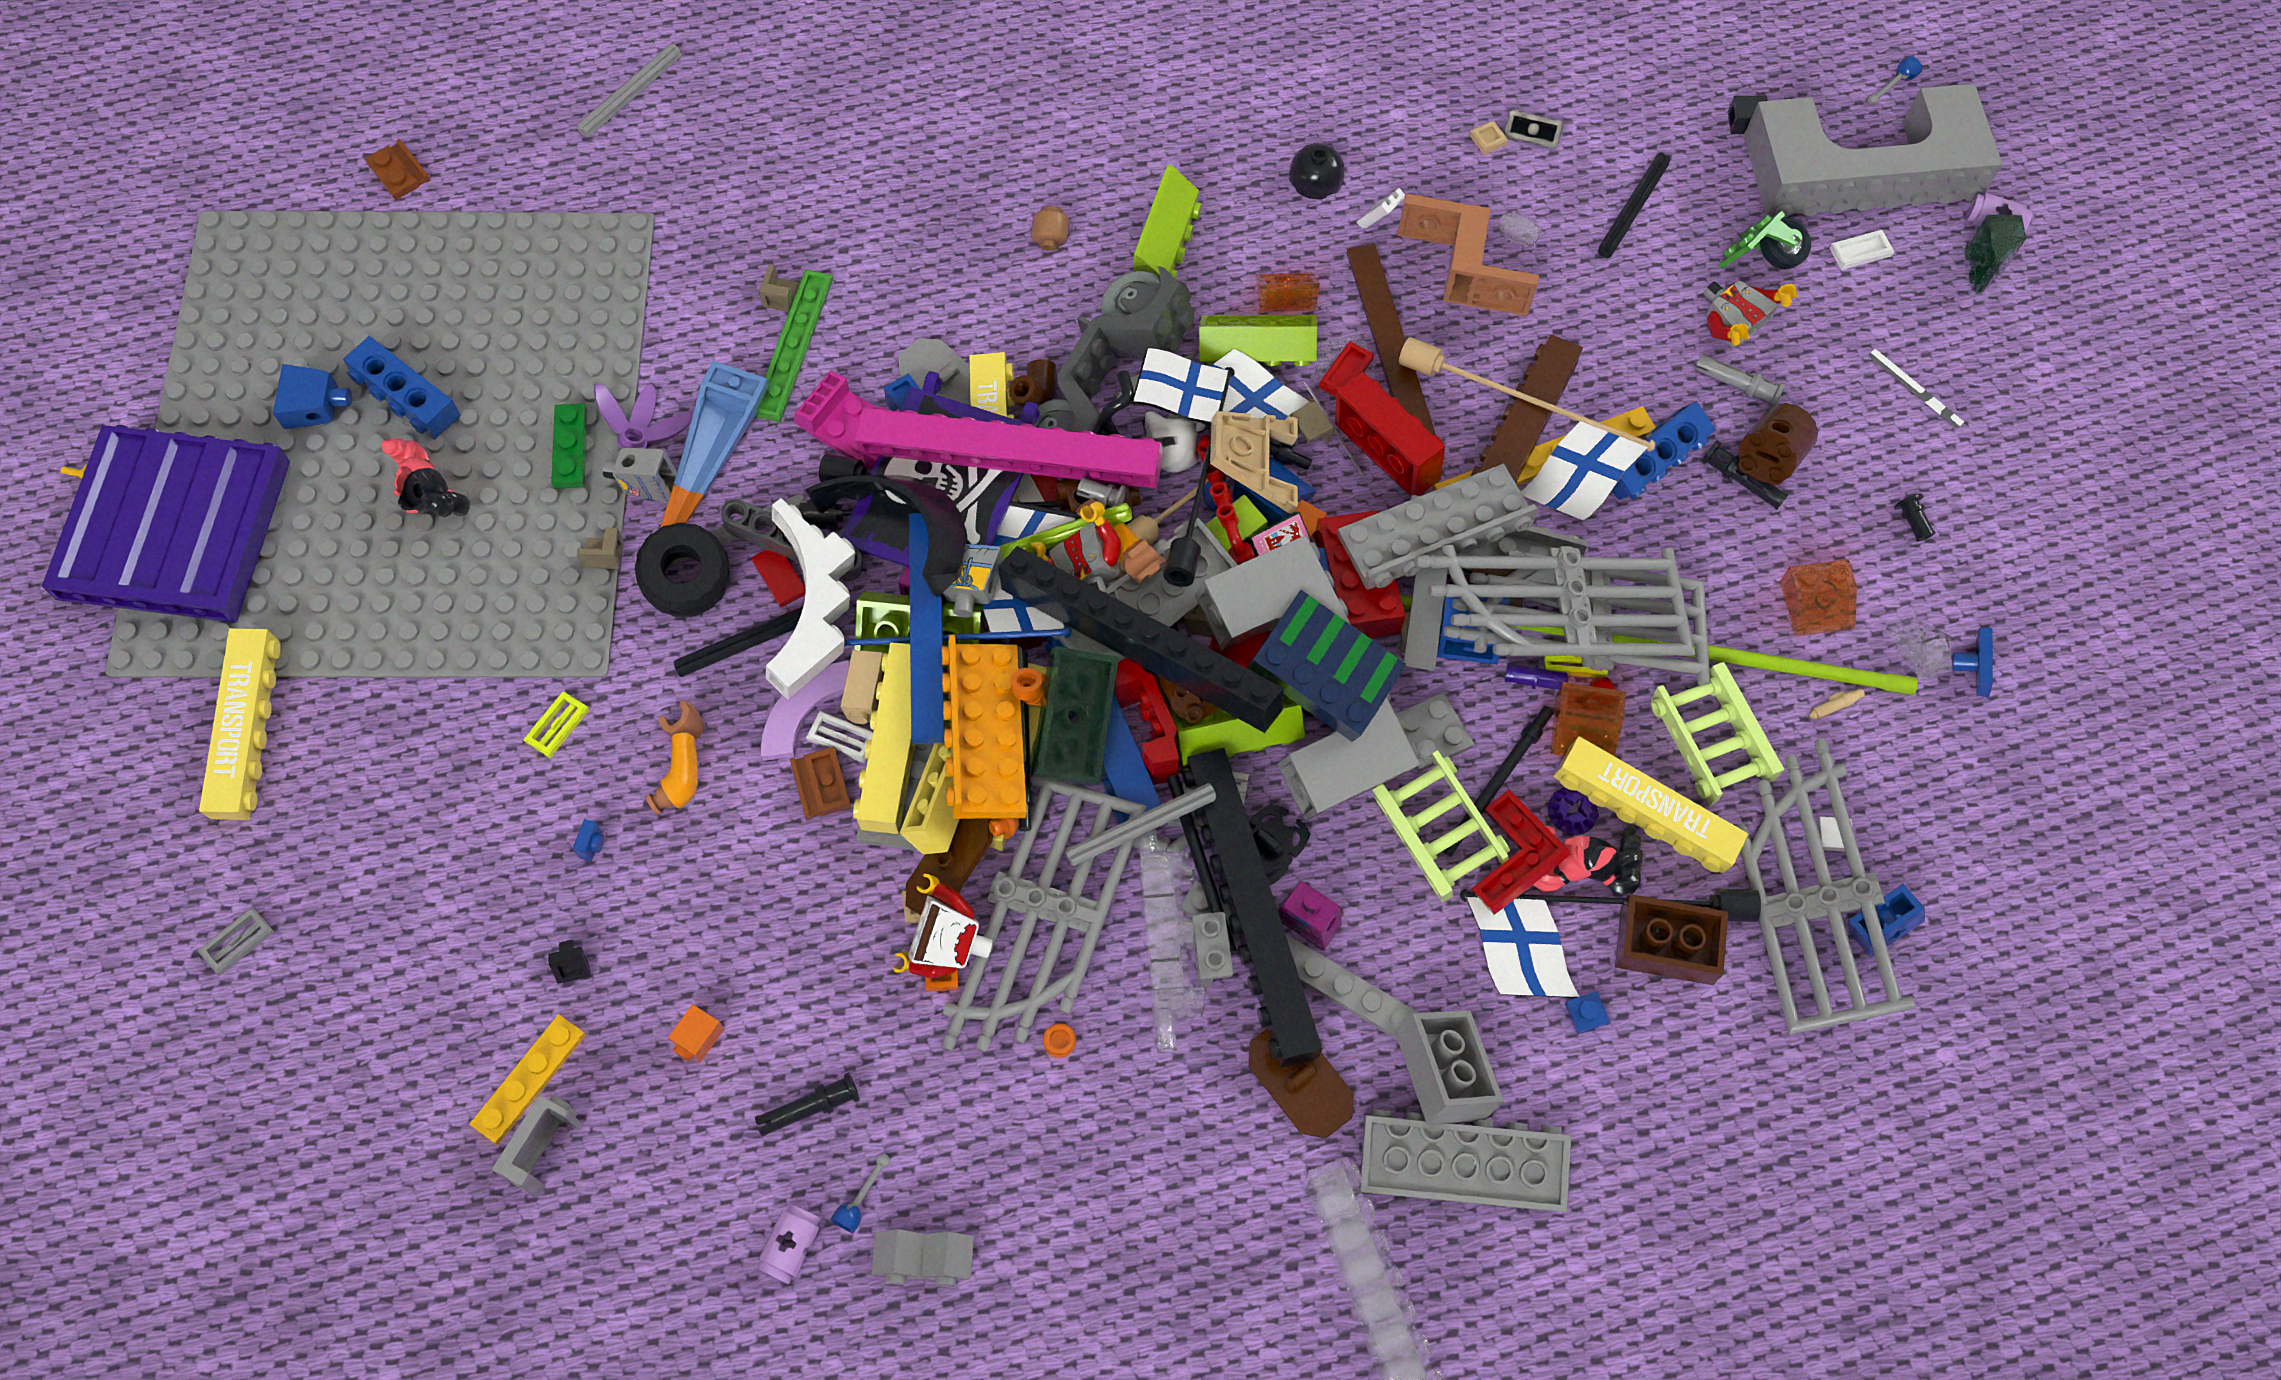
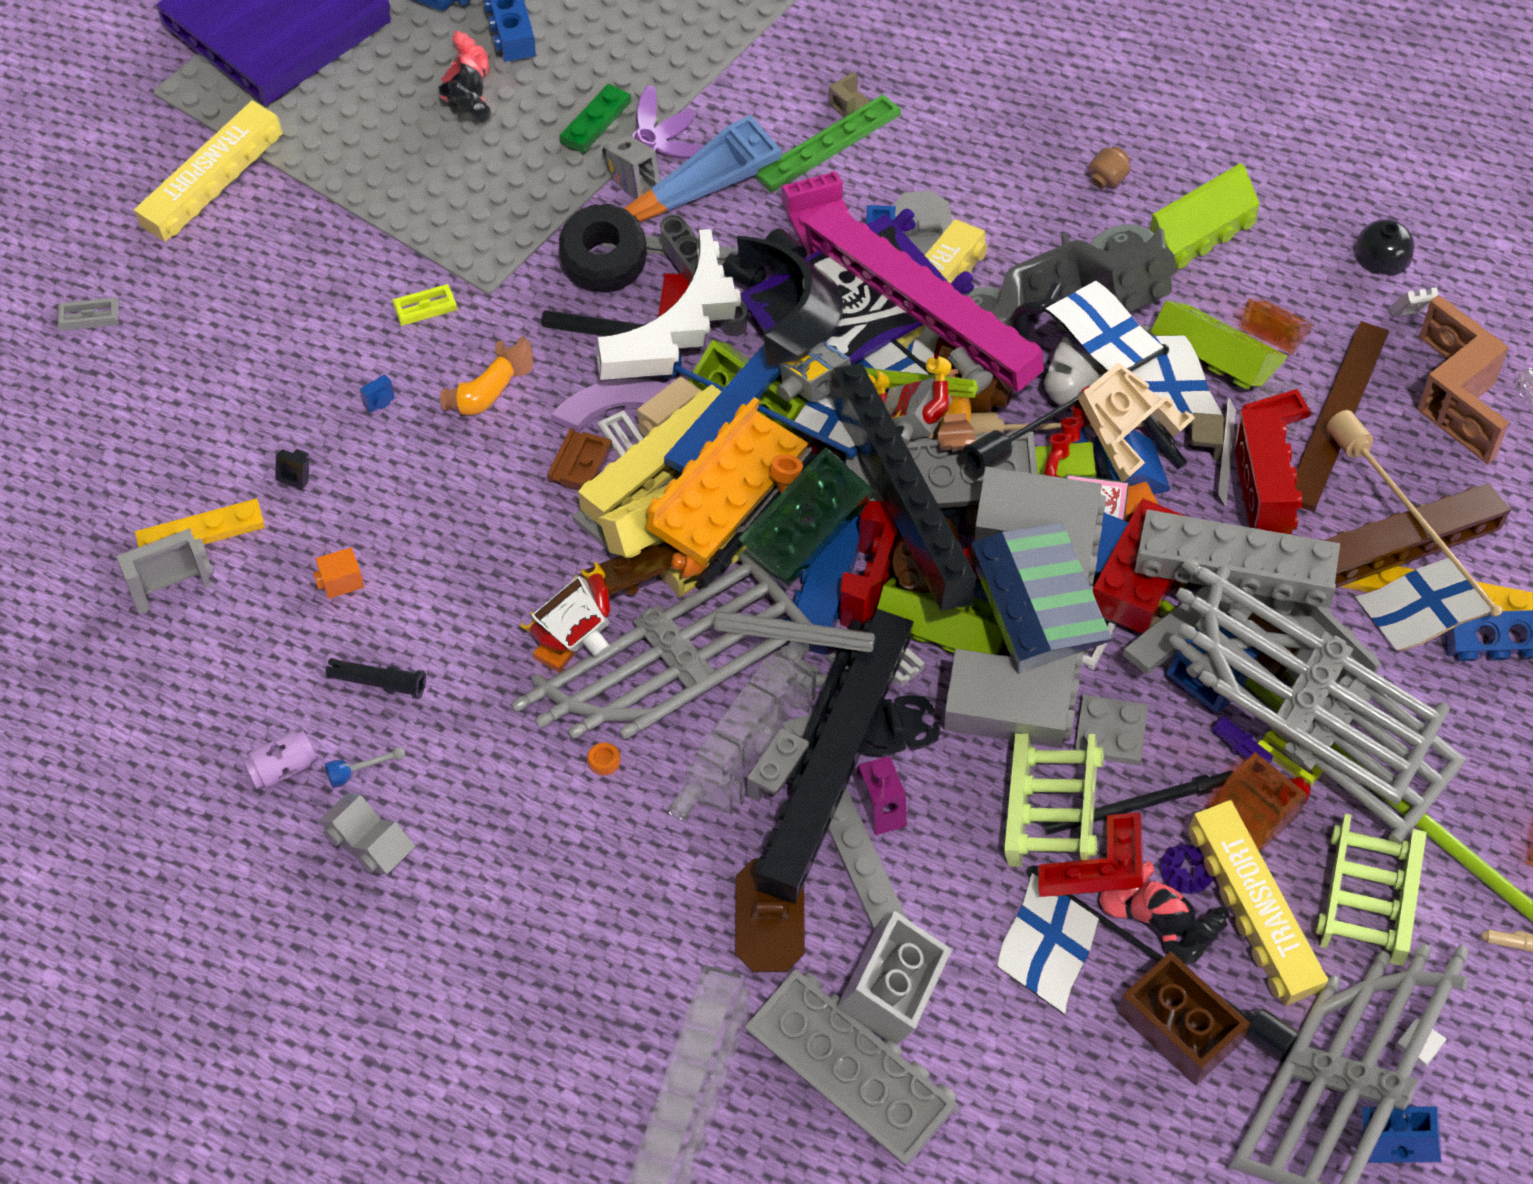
camera: 40 degrees right, 10 degrees down
(602, 552) = (557, 204): dark tan panel -> none
(1036, 386) = (982, 271): reddish brown cylinder -> none
(1587, 1012) = (1061, 1030): blue plate -> none

